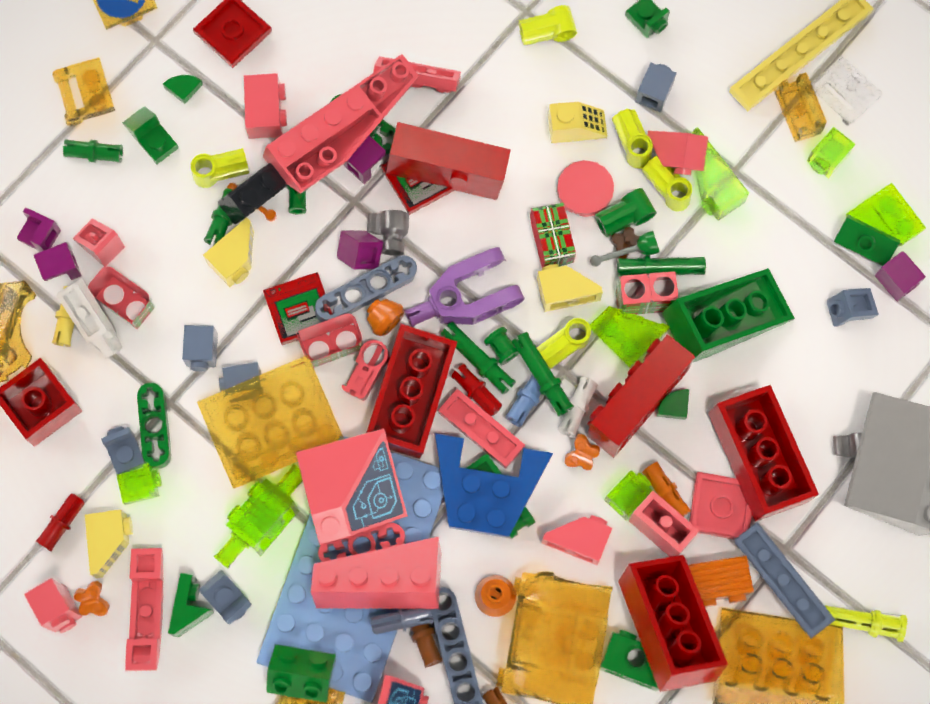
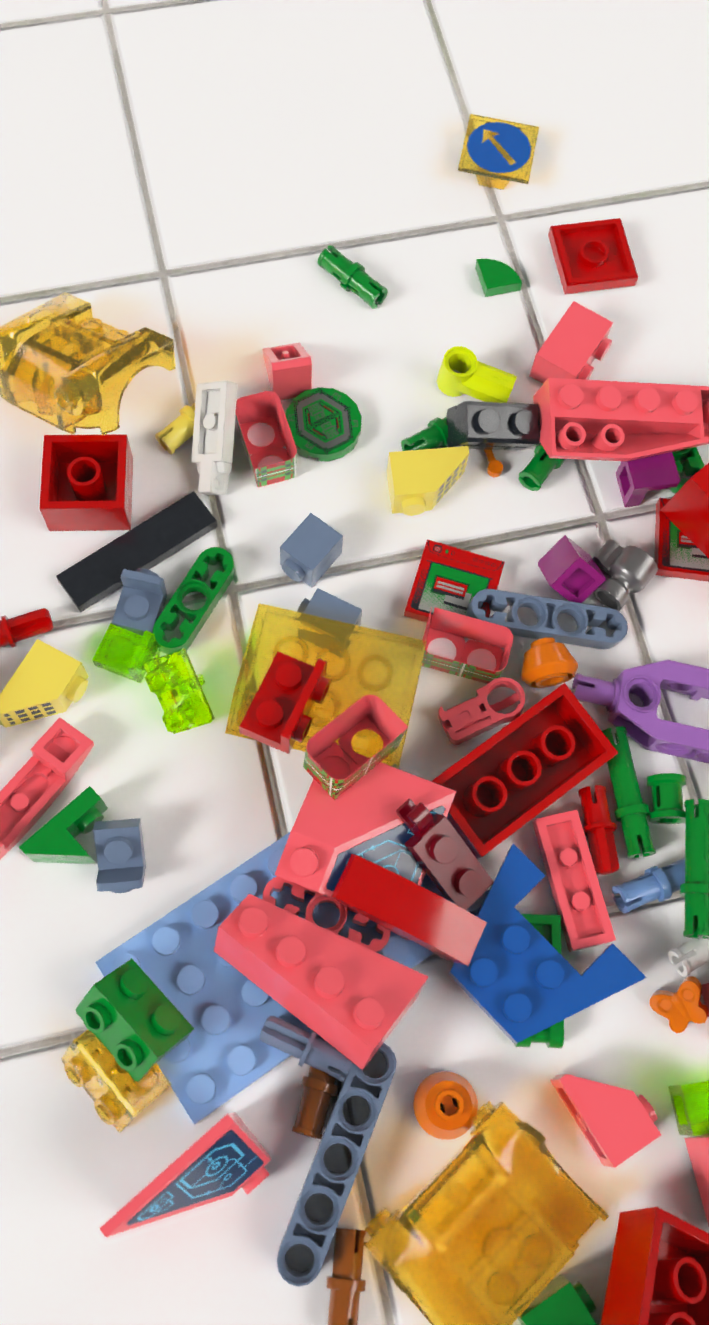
camera: 30 degrees right, 5 degrees down
(38, 231) = (233, 318): magenta panel -> none
(57, 262) = (227, 355): magenta panel -> none
(92, 88) = (399, 218): clear yellow plate -> none
(96, 420) = (138, 548): none -> black tile
(147, 261) = (324, 423): none -> tile
(150, 134) = (426, 302): green slope -> none
(188, 484) = (178, 691): none -> clear neon green hips
(254, 447) = (283, 702): none -> red bracket
(261, 517) = (229, 790): clear neon green brick -> none
(304, 424) = (365, 714): none -> coral piece
(402, 468) = (444, 855): none -> dark red plate
(404, 510) = (409, 910): none -> red slope

